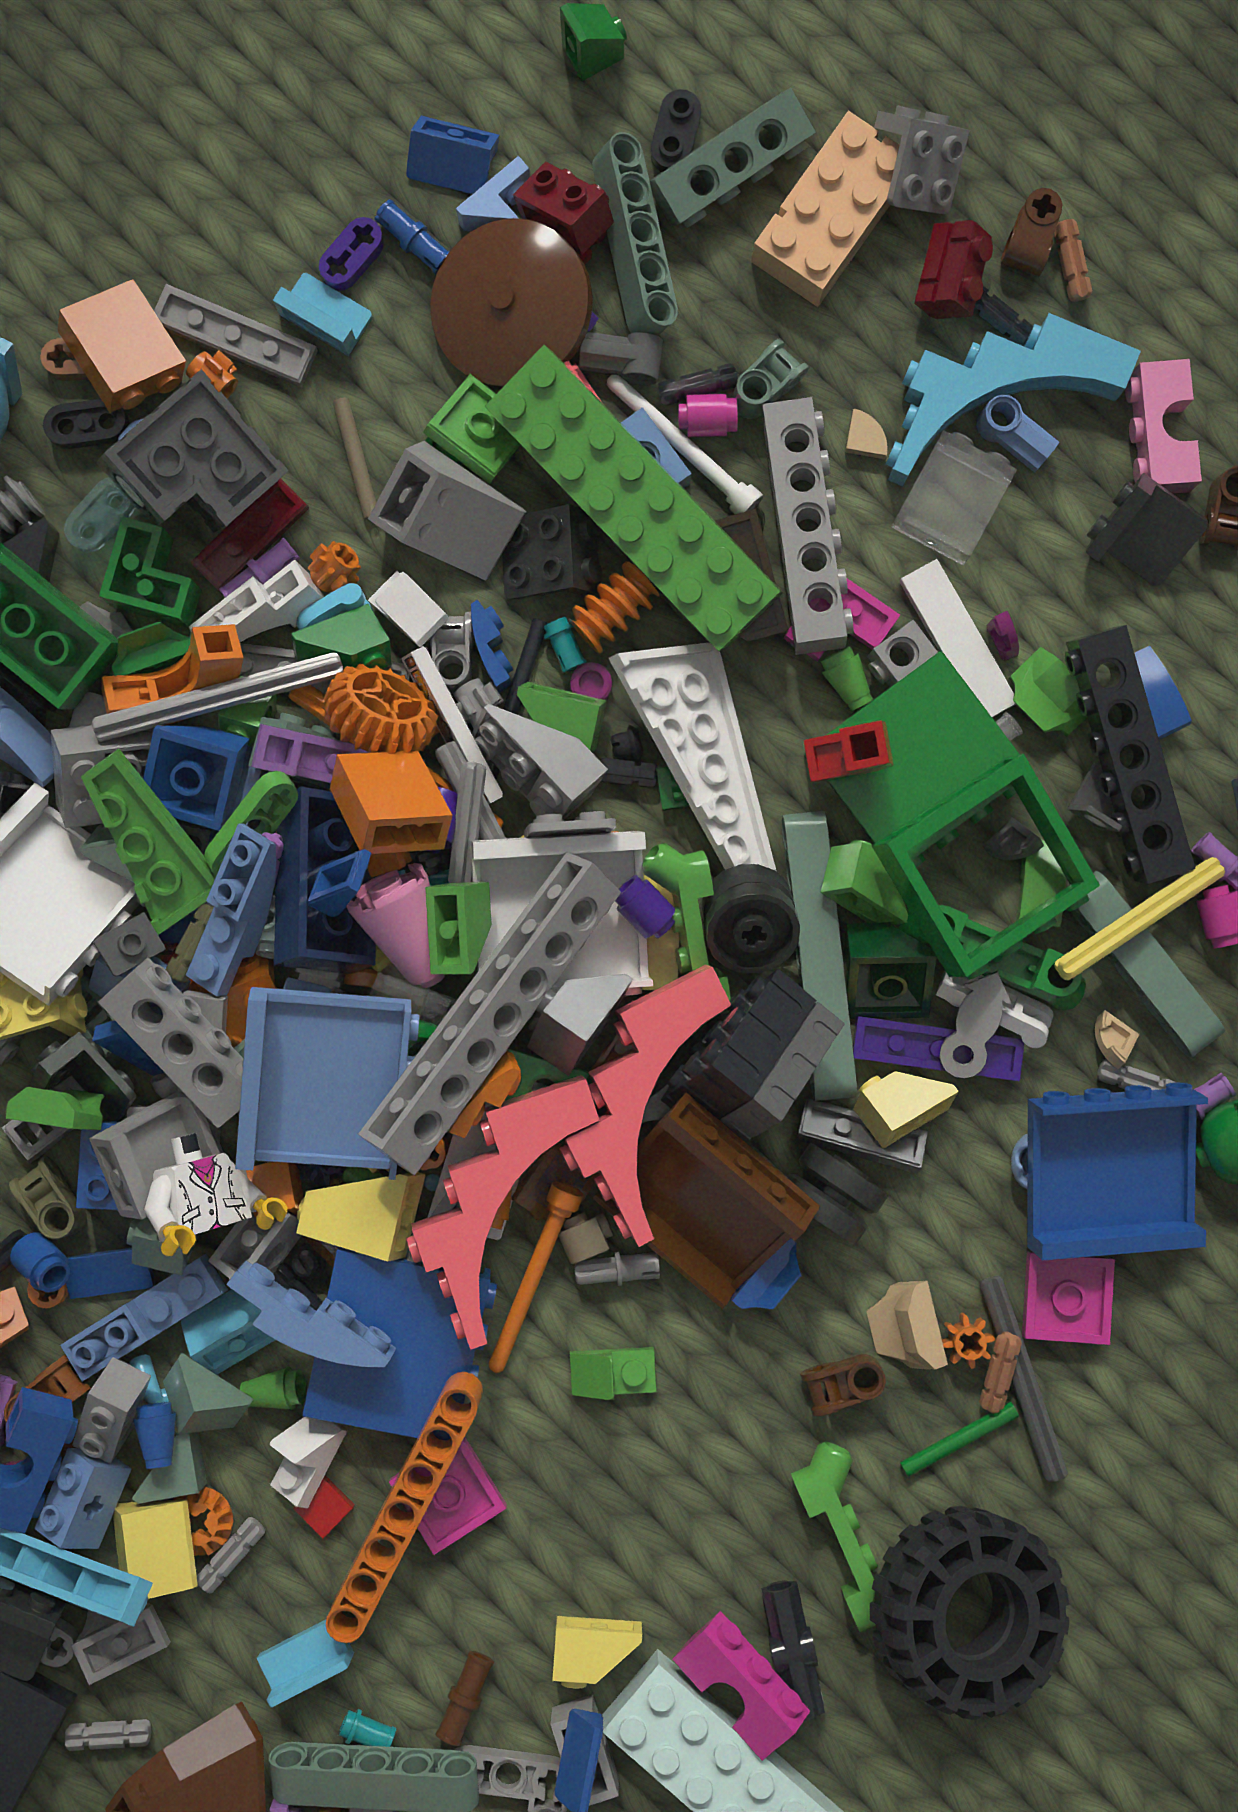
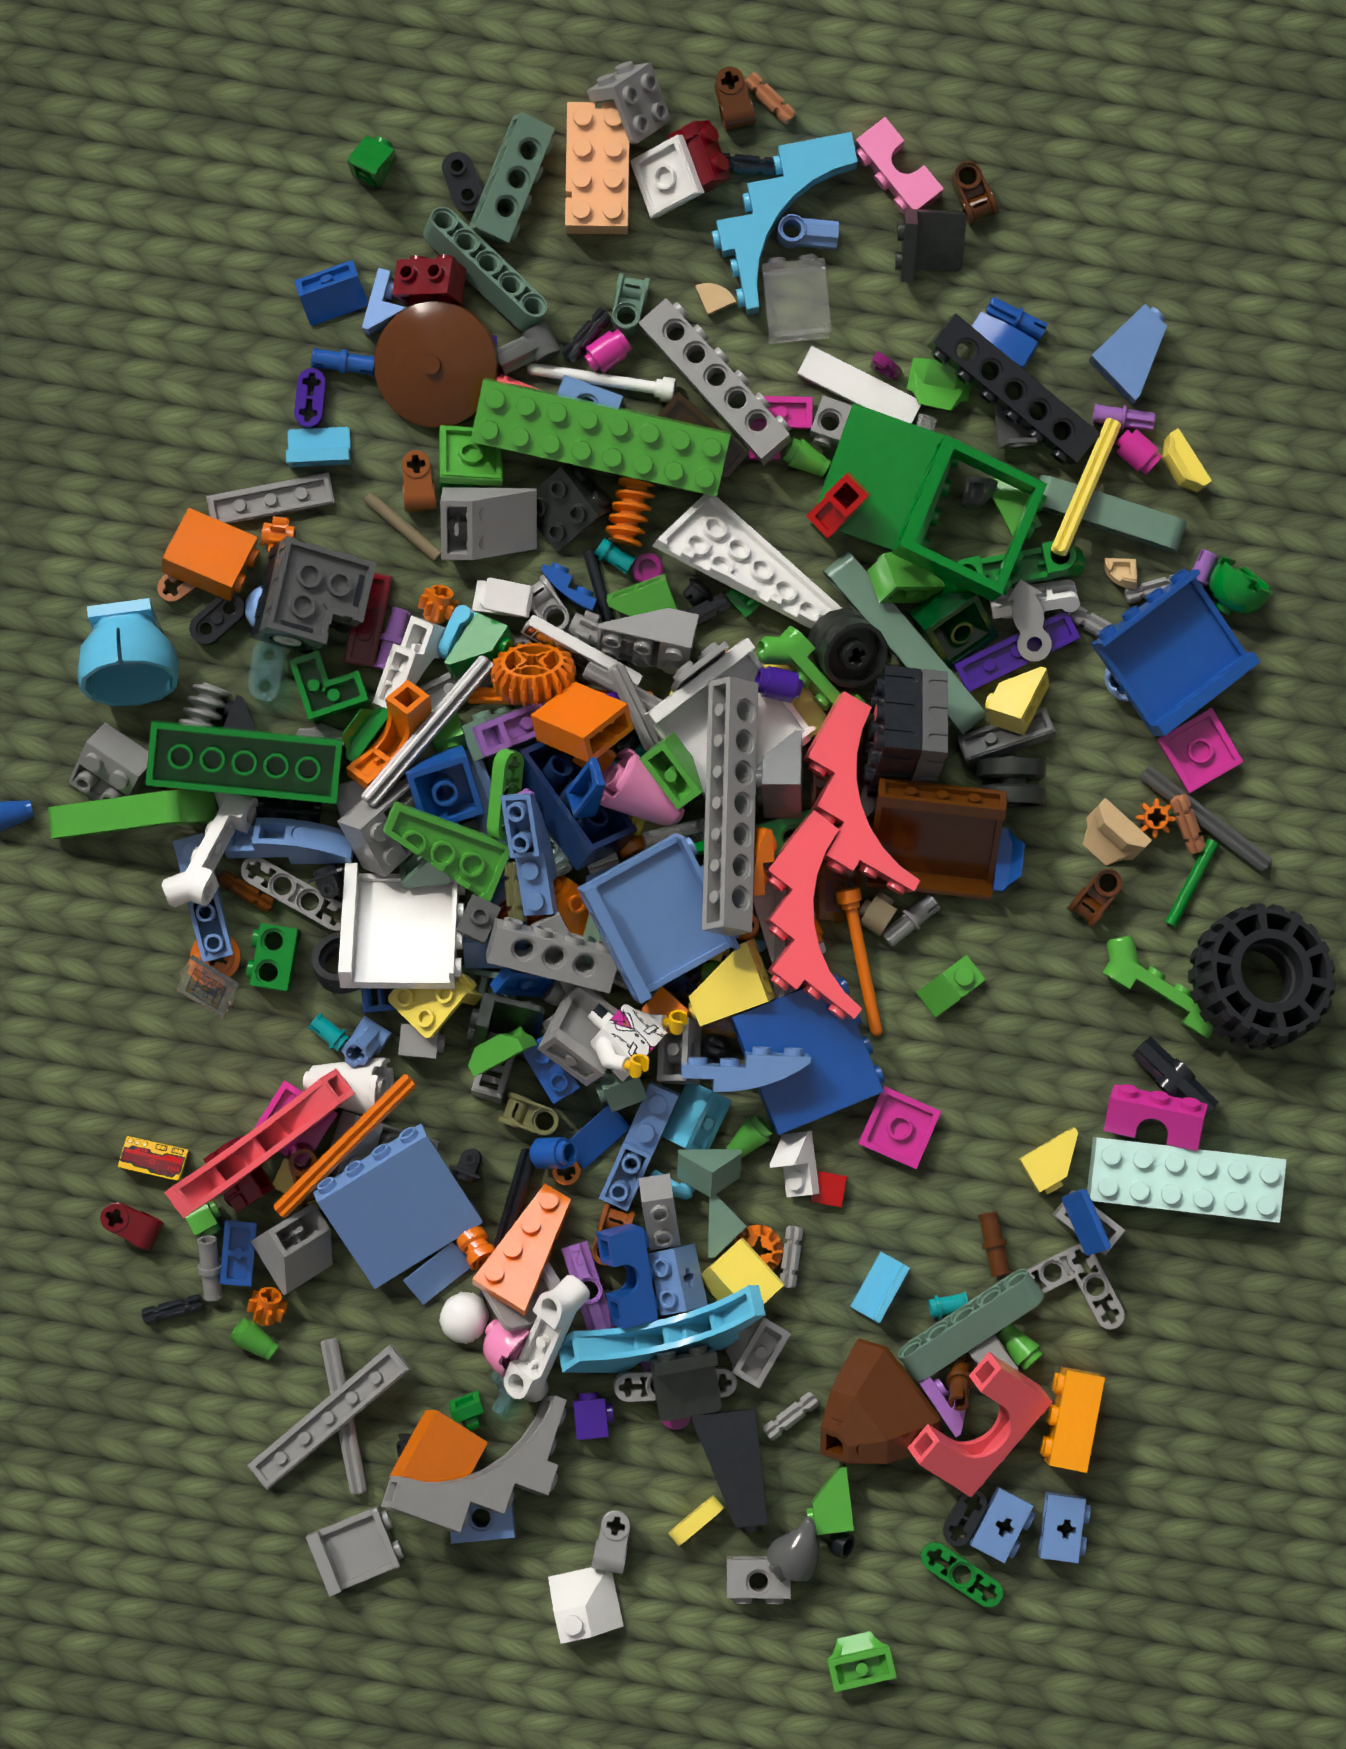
camera: 30 degrees left, 0 degrees up
(156, 1433) = (696, 1205): blue cone -> none
(399, 1526) = (883, 1162): orange beam -> none
(400, 425) = (418, 487): none -> dark orange piece
(903, 267) = (666, 176): none -> white tile
(1041, 1071) = (1091, 623): none -> light grey axle
(1185, 679) = (1016, 318): none -> blue axle

